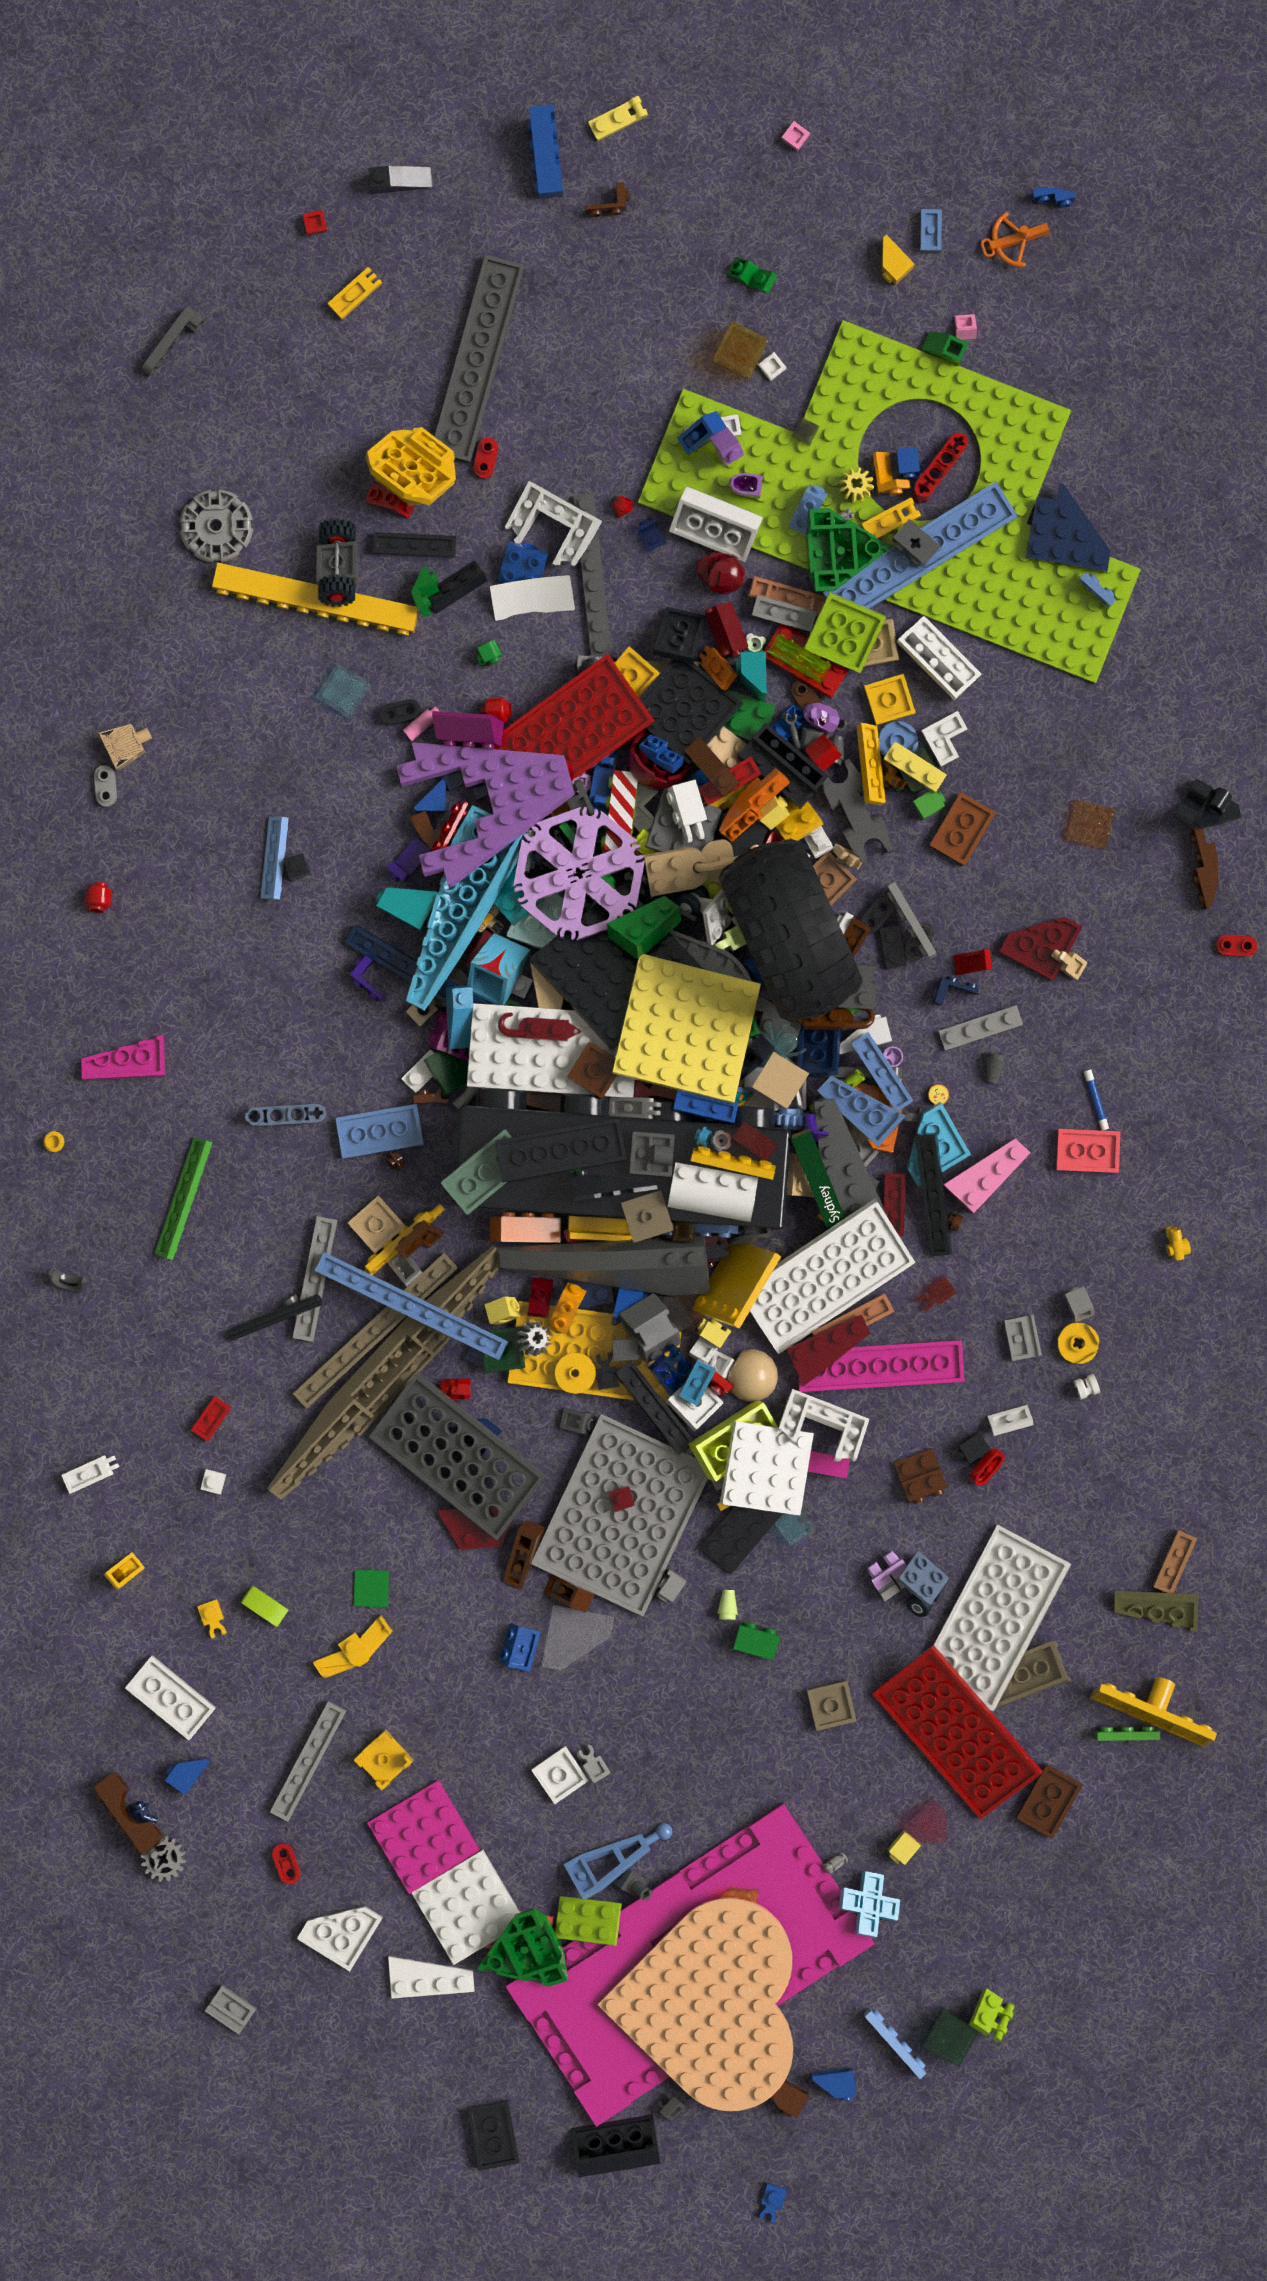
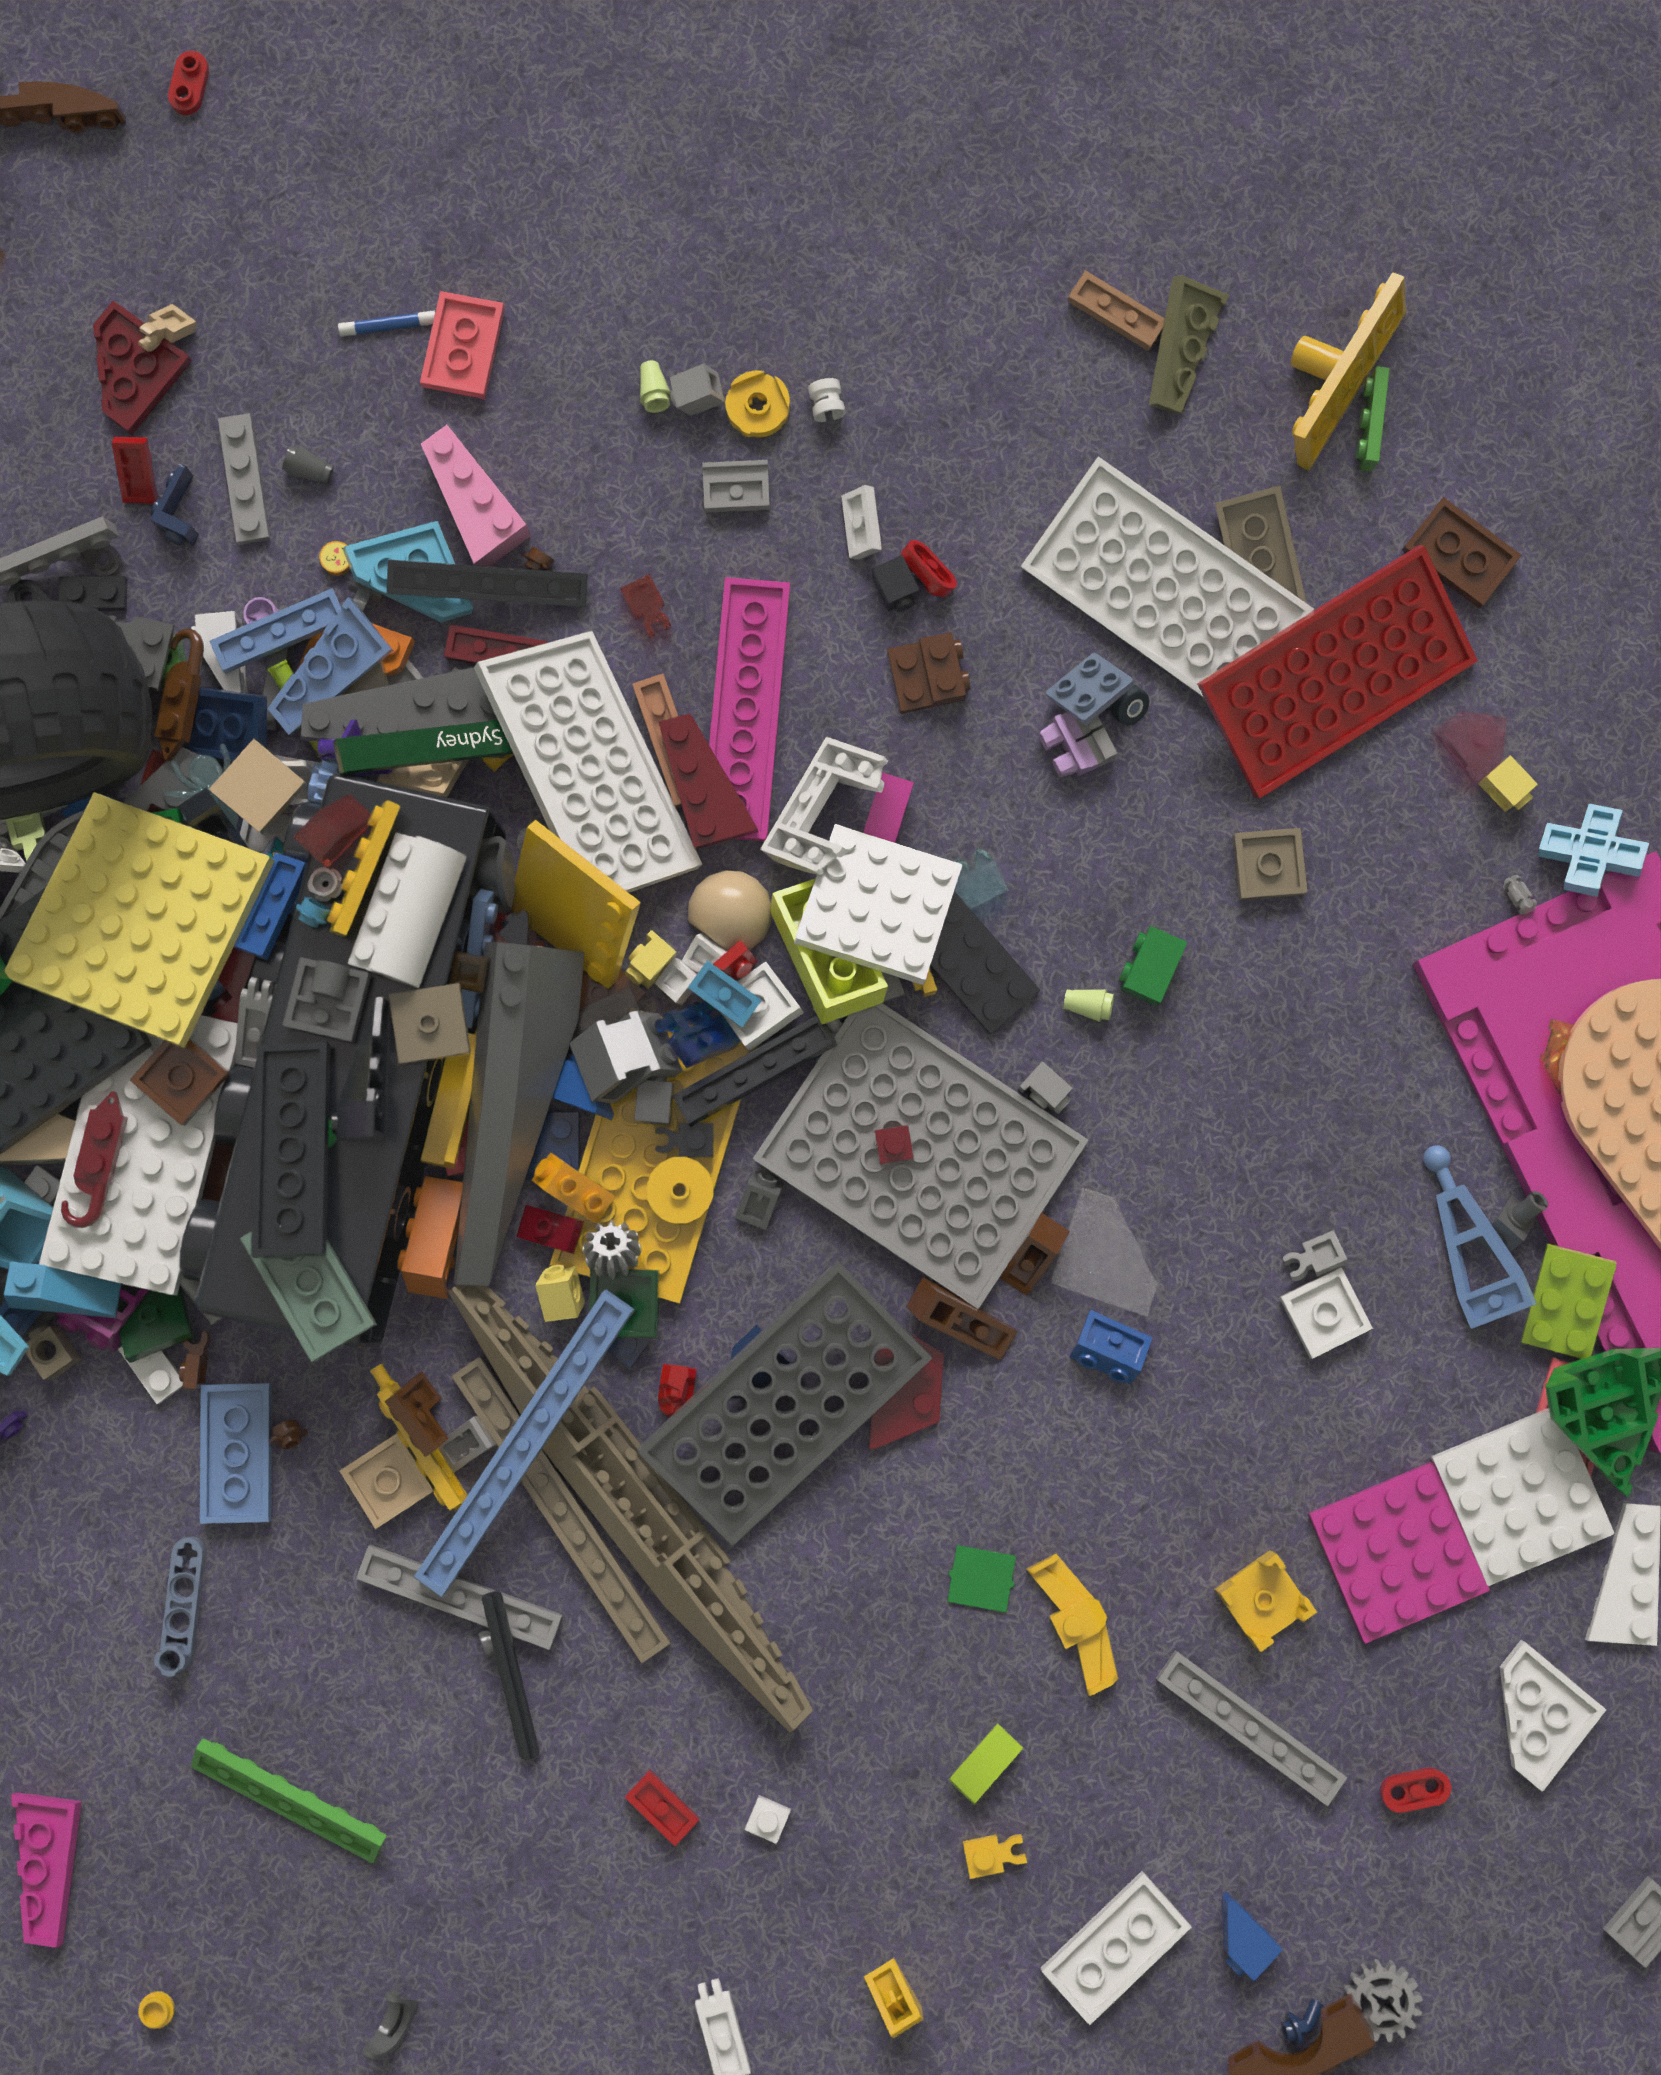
camera: 80 degrees left, 5 degrees down
(1077, 1276) = (653, 388): none -> yellowish green cone
(1177, 1246) = (629, 234): yellow plate -> none

